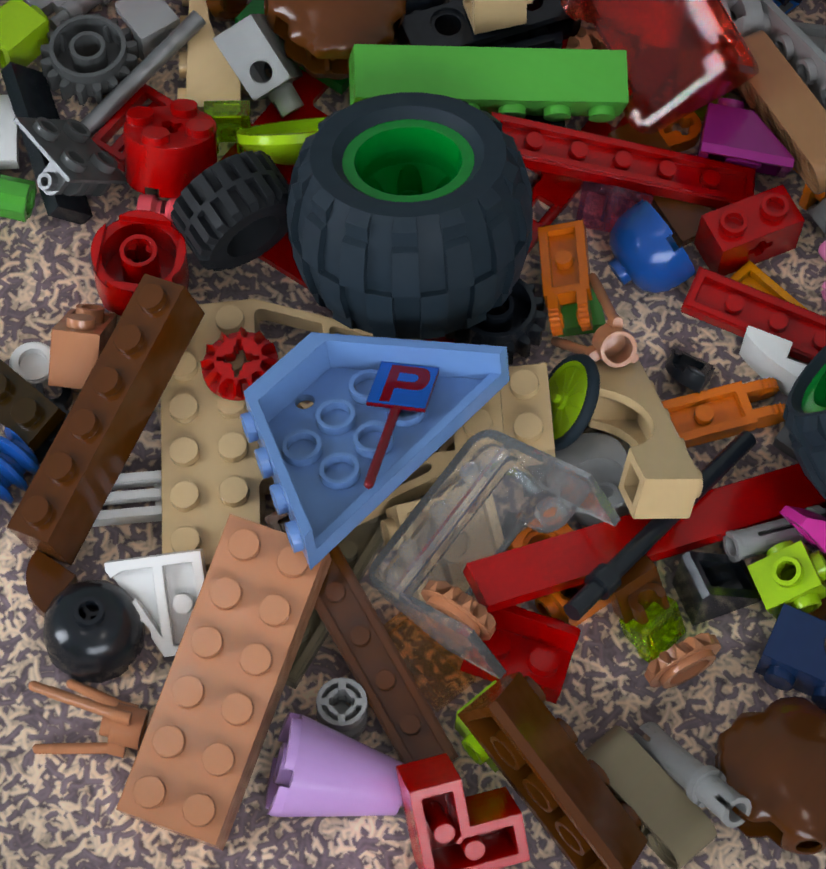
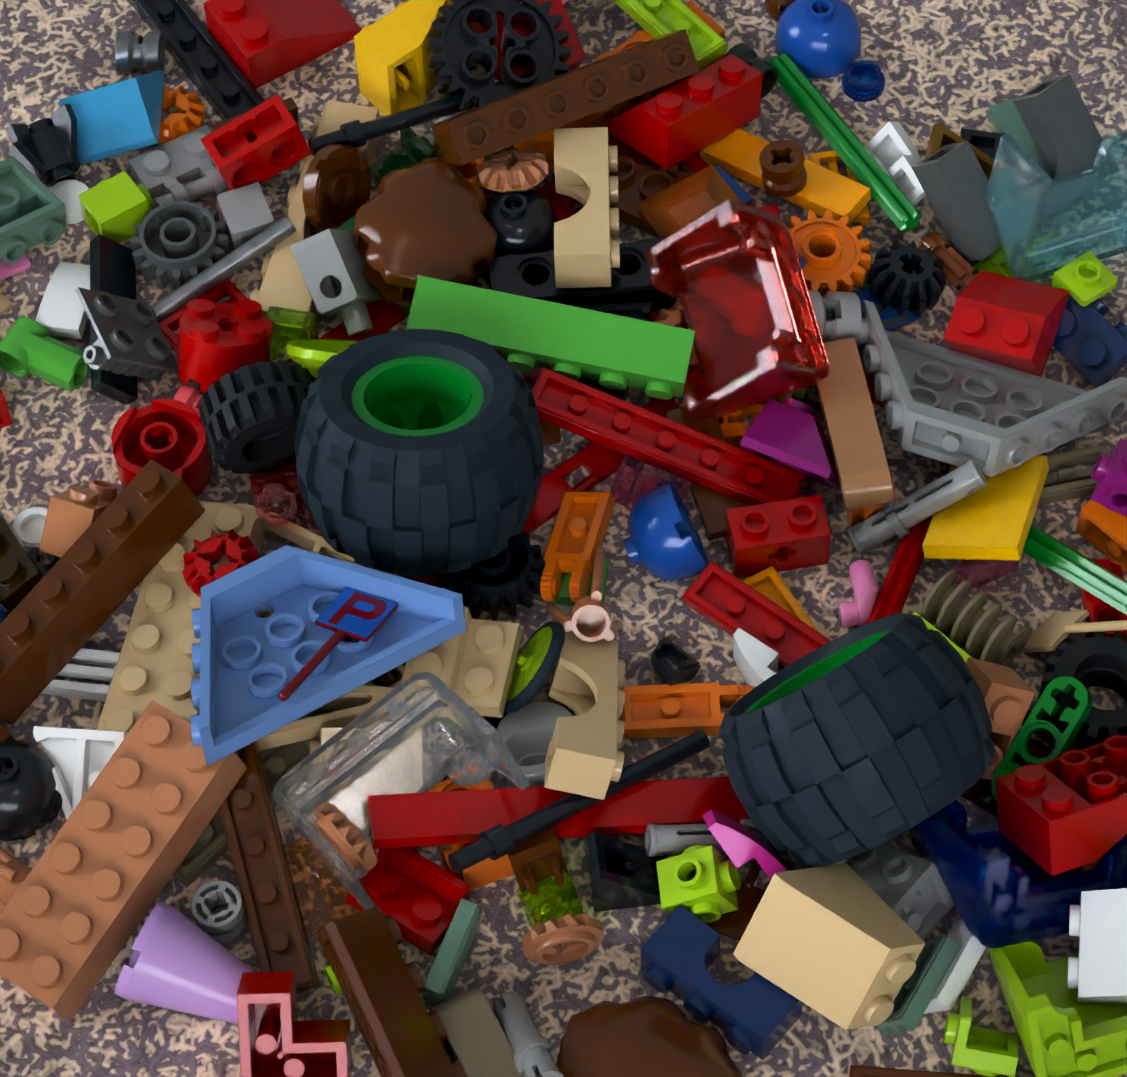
camera: 20 degrees right, 5 degrees down
(266, 284) = (276, 493): none -> clear red piece
(581, 693) = (452, 954): none -> sand green tile

